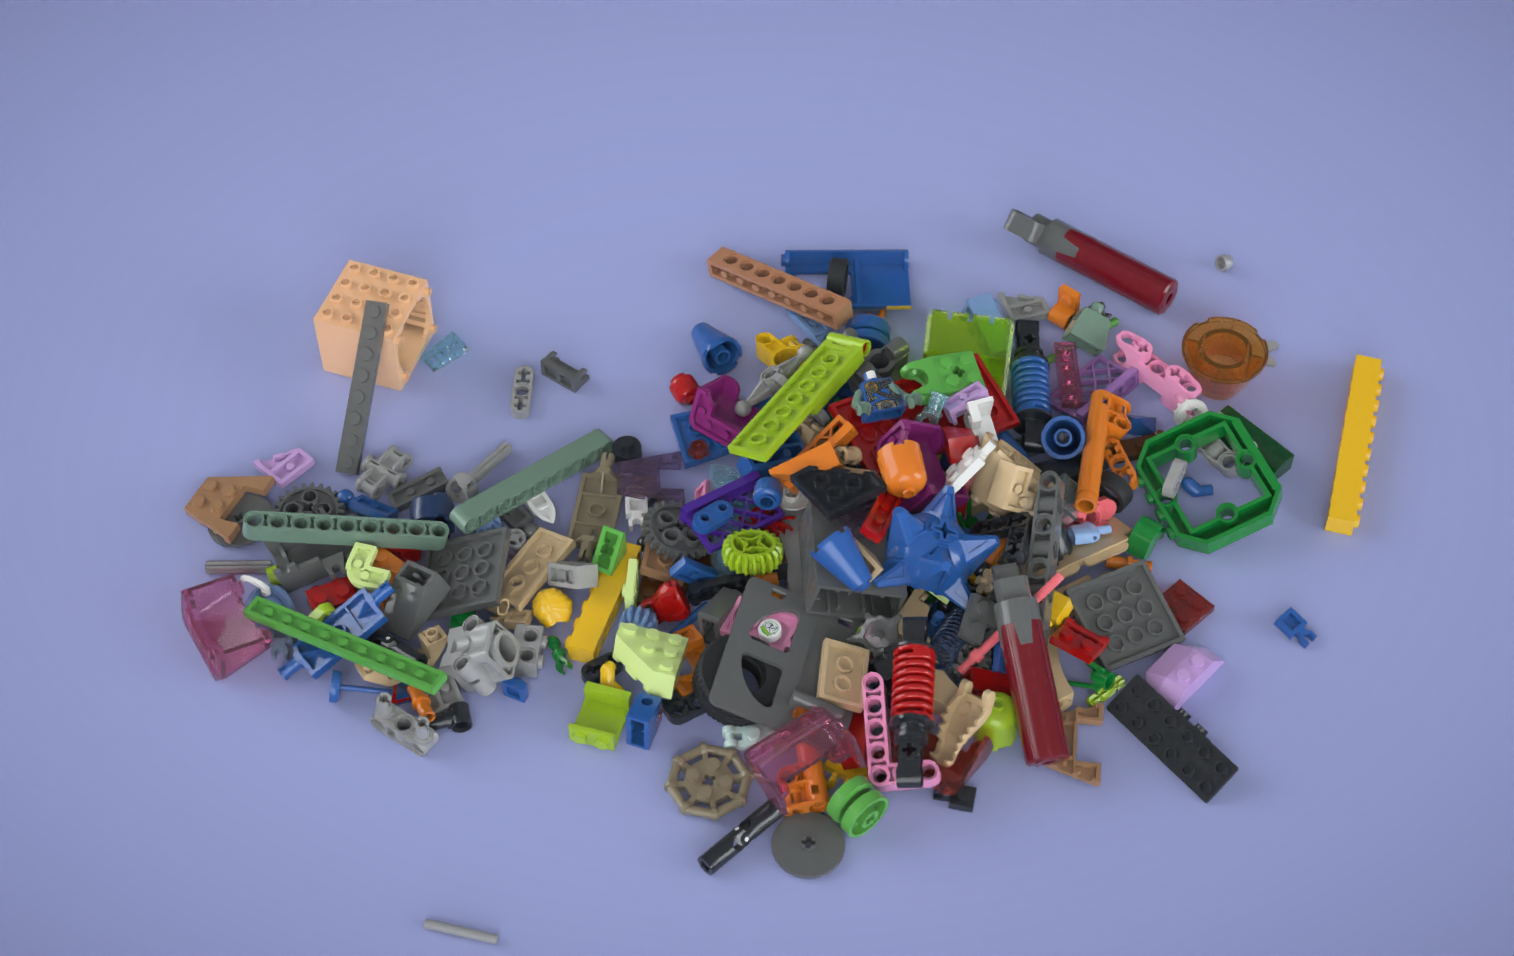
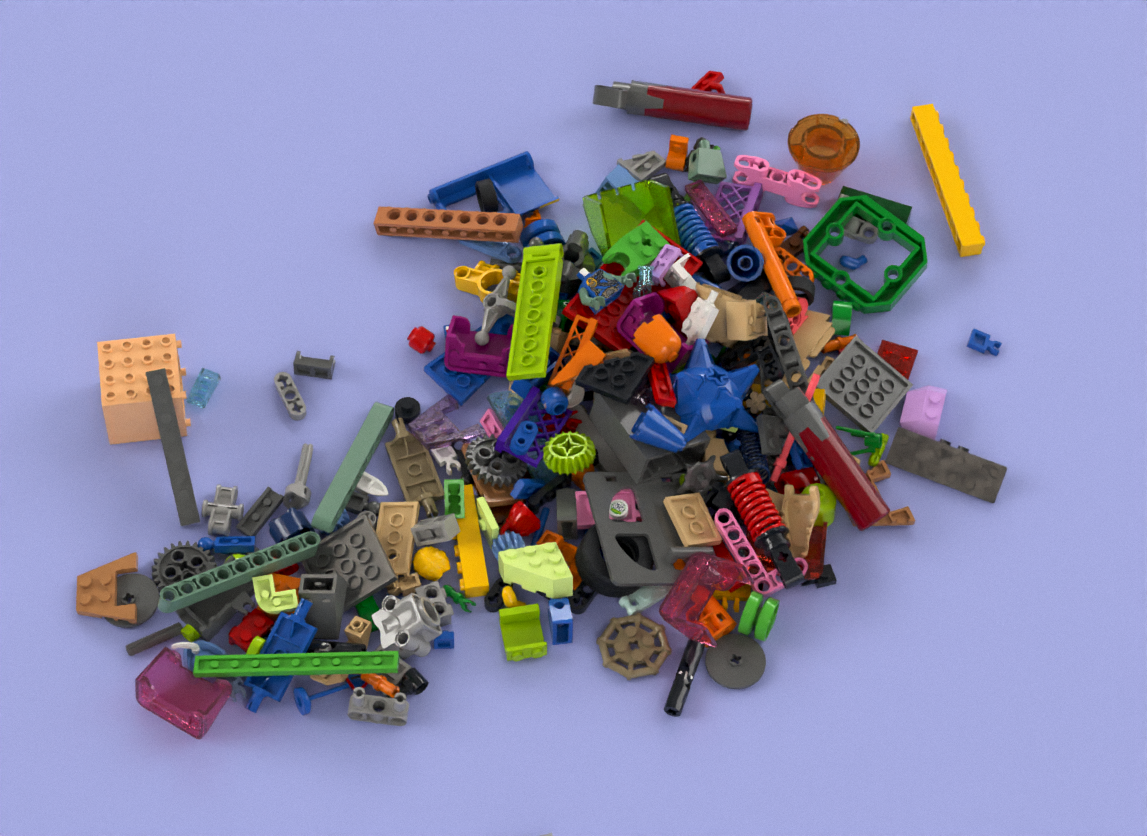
camera: 30 degrees left, 5 degrees up
(285, 466) = (136, 539): lavender wing -> none
(698, 449) = (466, 382): clear red plate -> none
(715, 348) = (425, 295): blue cone -> none
(850, 455) = (603, 341): tan bush -> none
(1071, 639) = (846, 419): red plate -> none
(1086, 533) = (802, 331): light blue piece -> none
(1147, 253) = (710, 82): none -> red plate
(1174, 478) = (842, 262): light grey beam -> none
(1194, 405) = (818, 210): white gear -> none
(1224, 262) = (771, 67): light grey hinge -> none

